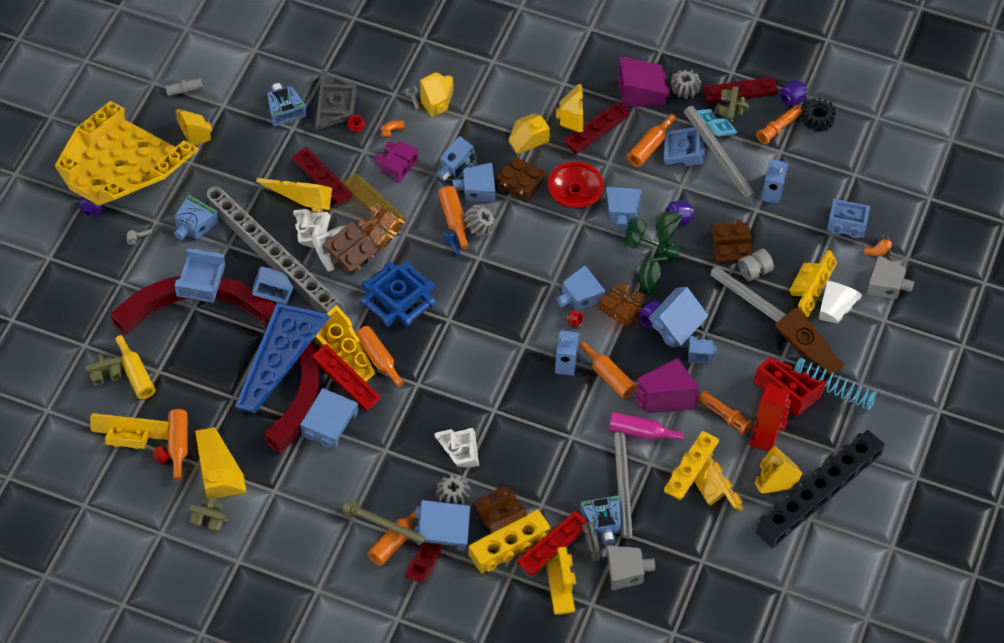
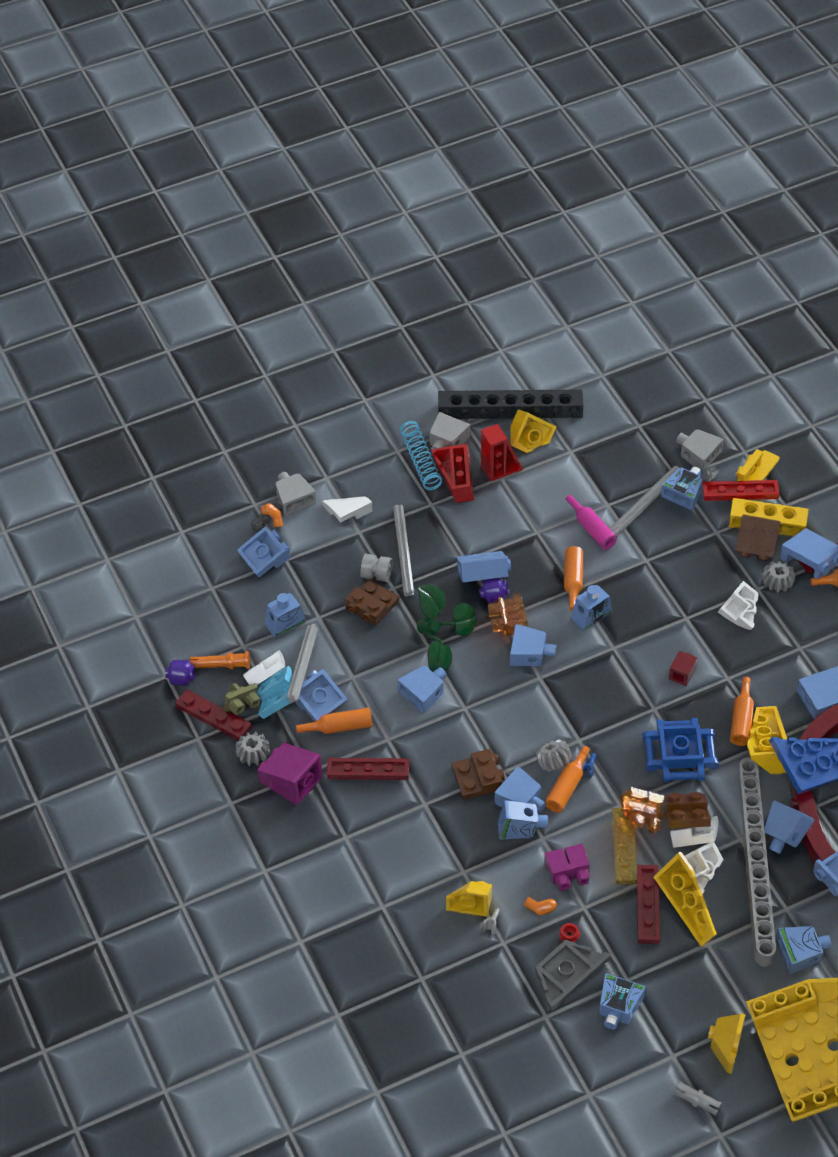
camera: 135 degrees left, 5 degrees down
(346, 377) = (789, 708): red plate -> none
(454, 357) = (682, 668): none -> dark red brick
(529, 133) = (428, 808): yellow slope -> none
(571, 110) = (377, 784): yellow slope -> none
(575, 318) = (556, 632): red plate -> none
(577, 178) = (443, 716): red dish -> none
(667, 389) = (549, 526): magenta slope -> none
(682, 208) = (386, 649): dark purple head -> none
(691, 465) = (590, 470): yellow bracket -> none
(701, 351) = (488, 540): medium blue brick -> none
(715, 486) = (579, 459): yellow bracket -> none
(732, 417) = (517, 486): orange pin -> none
(742, 140) = (265, 669): none -> white slope
(808, 341) = (404, 491): reddish brown piece -> none
(811, 282) = (349, 533): yellow bracket -> none
(816, 122) = (178, 637): black tyre -> none
(837, 420) = (448, 432): none -> light grey torso

